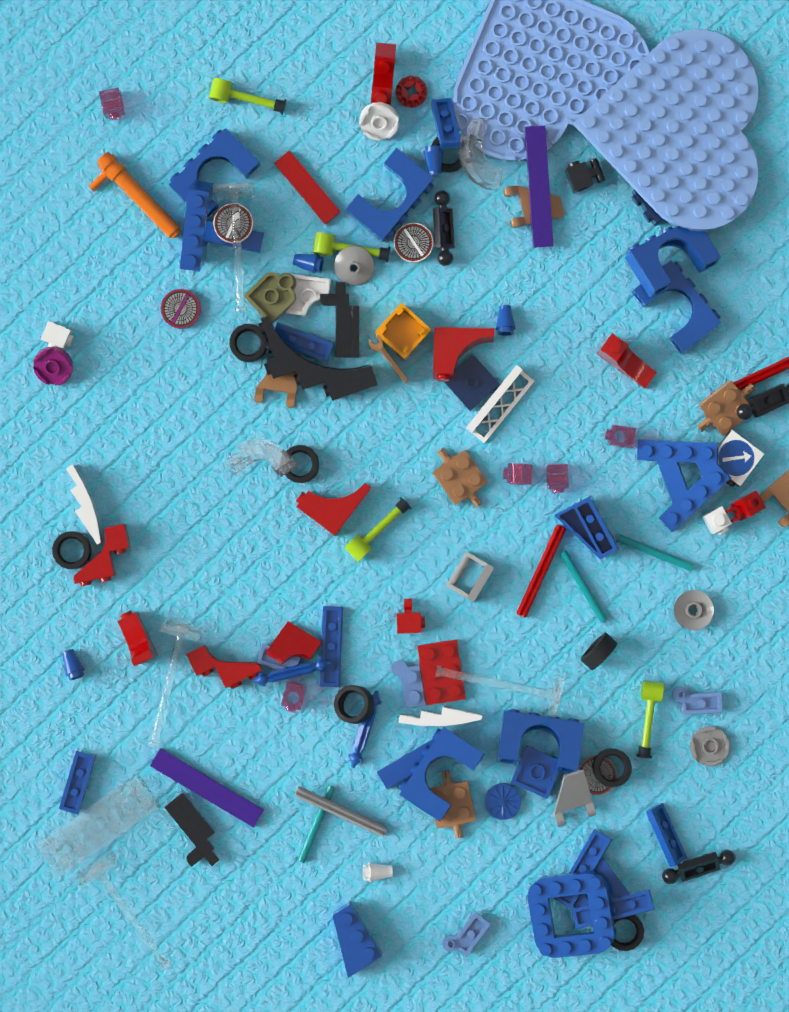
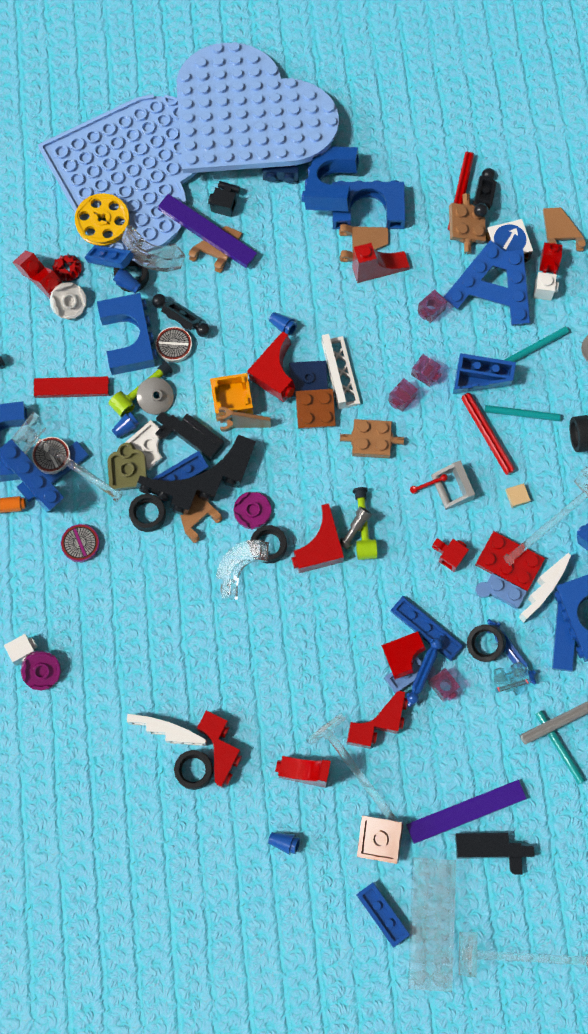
camera: 45 degrees left, 15 degrees down
(131, 737) = (380, 839): none -> plate
(319, 427) = (252, 510): none -> magenta tile
(339, 747) = (512, 680): none -> clear light blue hips
(382, 523) = (362, 516): none -> dark grey piece
(443, 547) = (414, 489): none -> red hinge
(448, 410) = (315, 408): none -> dark orange plate
(469, 93) = (102, 212): none -> yellow wedge
(504, 636) = (517, 495): none -> tan tile
(641, 329) = (363, 235): none -> medium nougat flag

